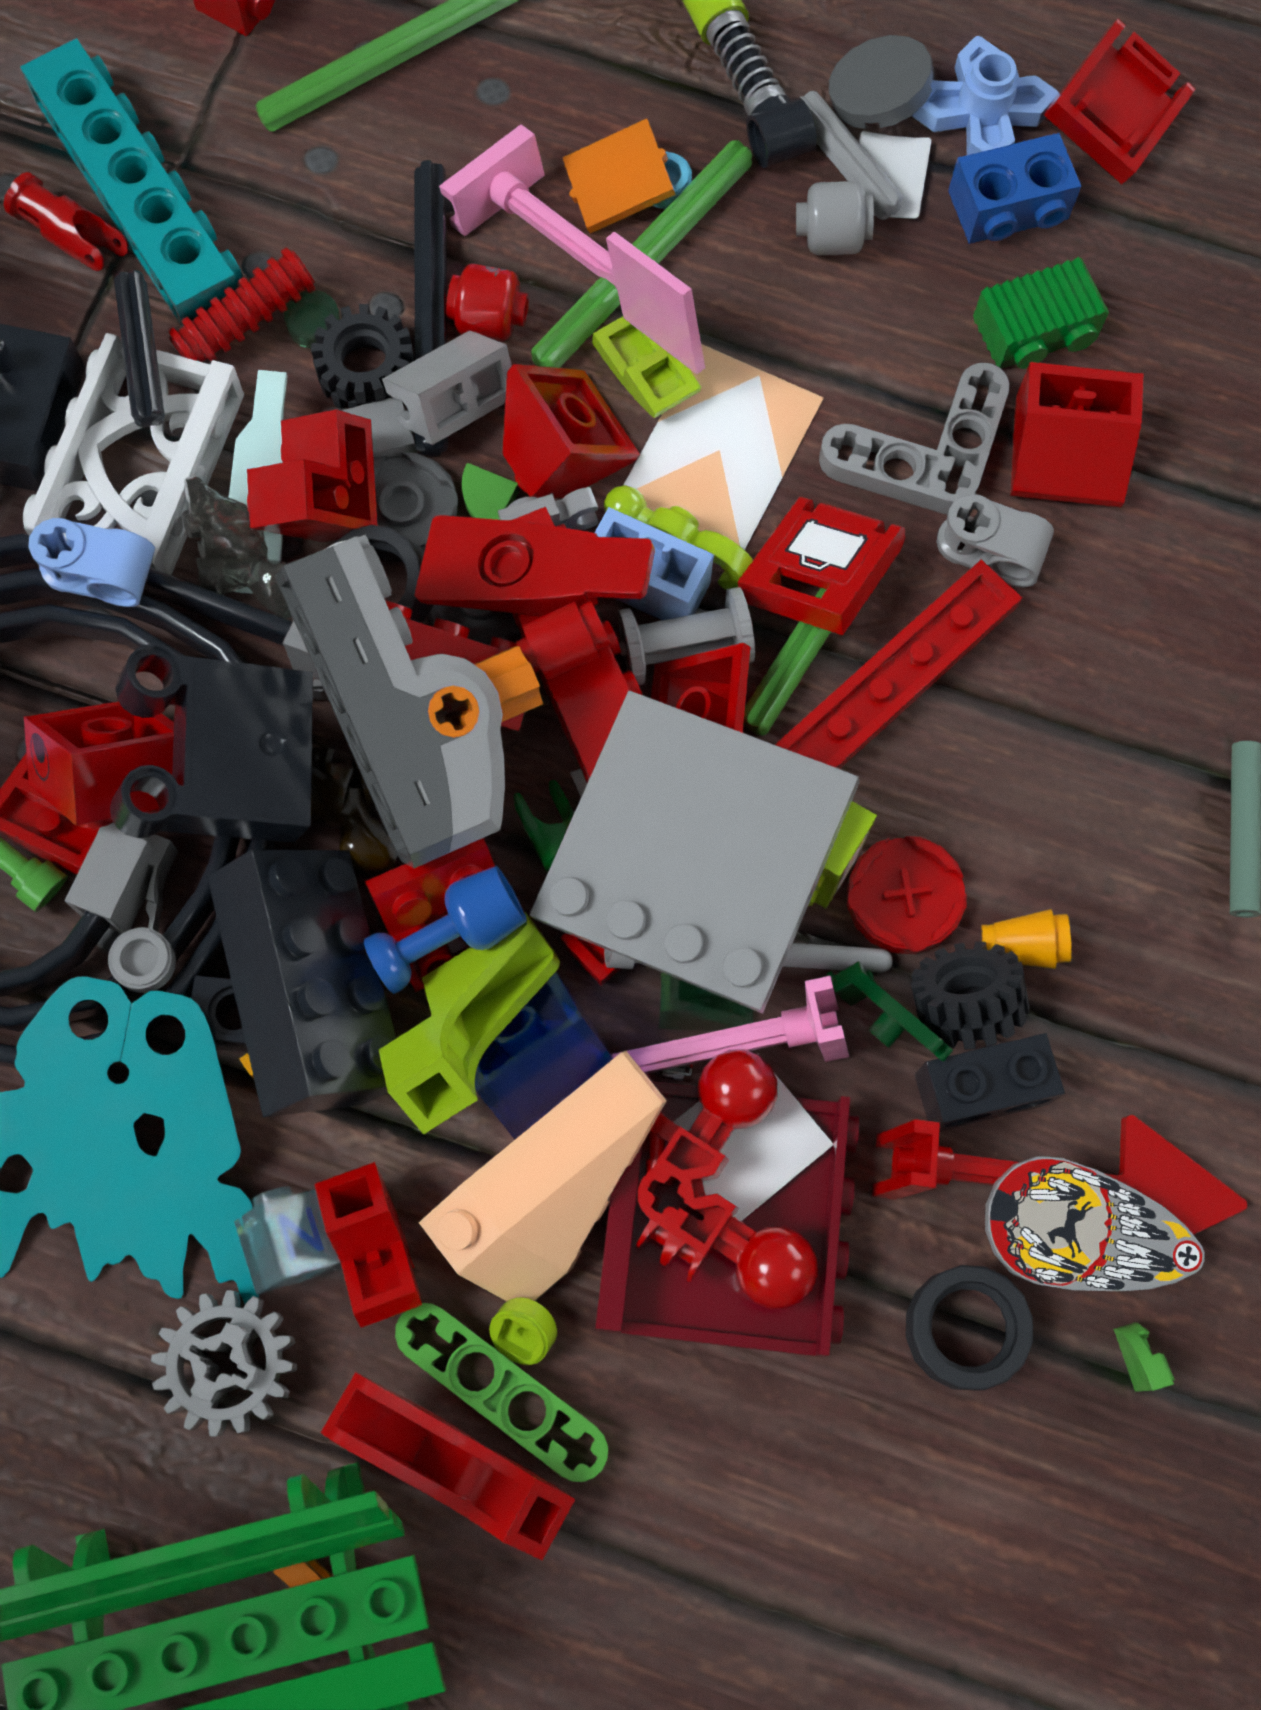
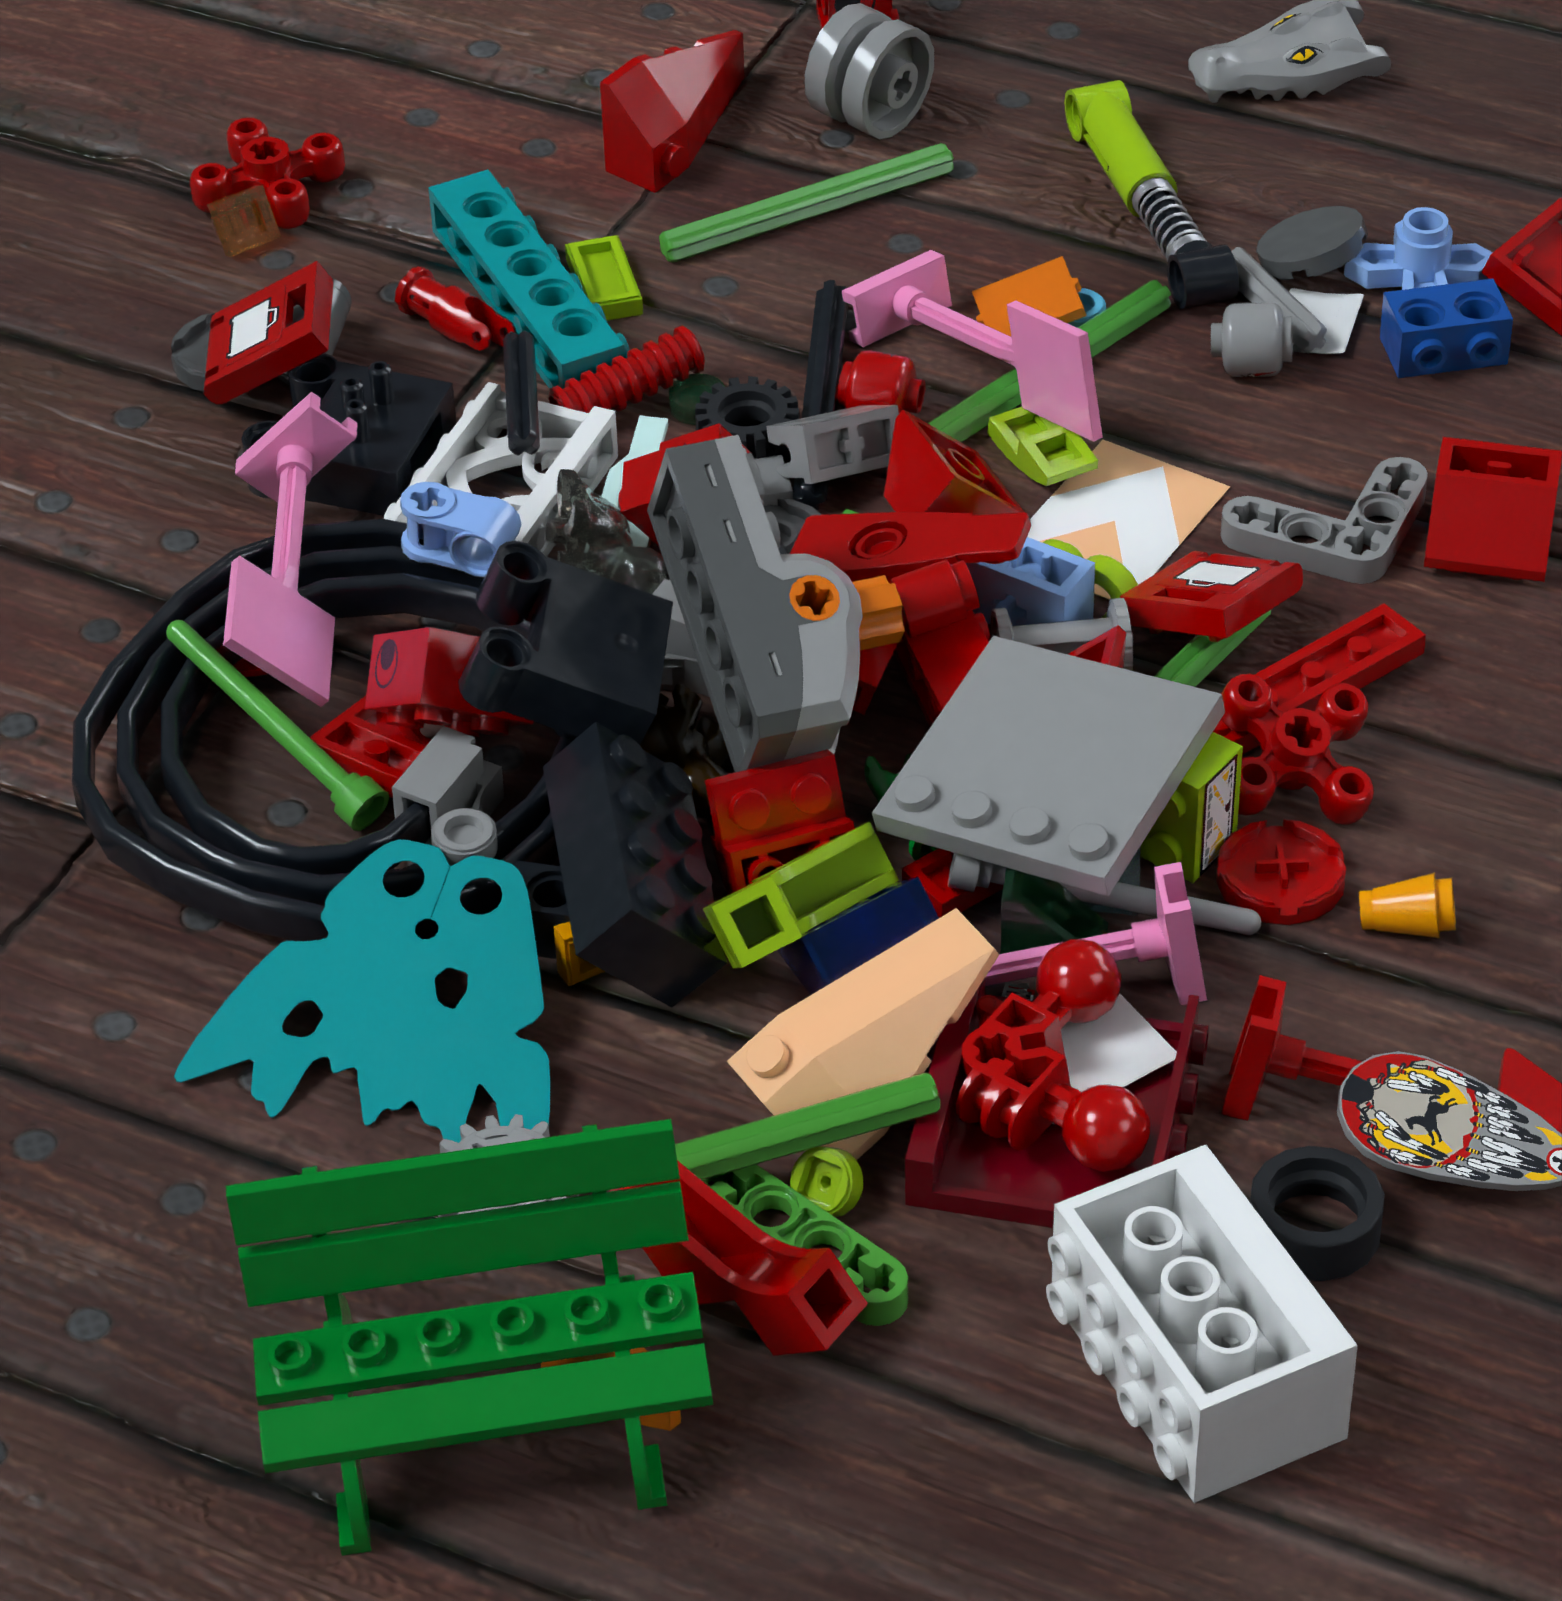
camera: 10 degrees right, 30 degrees down
(207, 161) = (605, 276): none -> lime tile
(284, 1239) = (583, 1080): clear light blue brick -> none
(369, 1244) = (670, 1076): red brick -> none
(479, 910) = (820, 802): blue piece -> none
(499, 1300) = (810, 1126): none -> bright green axle
(857, 984) = (1248, 935): dark green piece -> none
(925, 1513) = (1200, 1323): none -> white brick
(929, 745) = (1298, 747): none -> red gear
(971, 994) = (1338, 928): black tyre -> none
(989, 1082) = (1358, 1005): black brick -> none
(1003, 537) = (1413, 587): light grey piece -> none
(1040, 314) = (1470, 410): green brick -> none
(1146, 1370) = (1511, 1256): bright green tile -> none

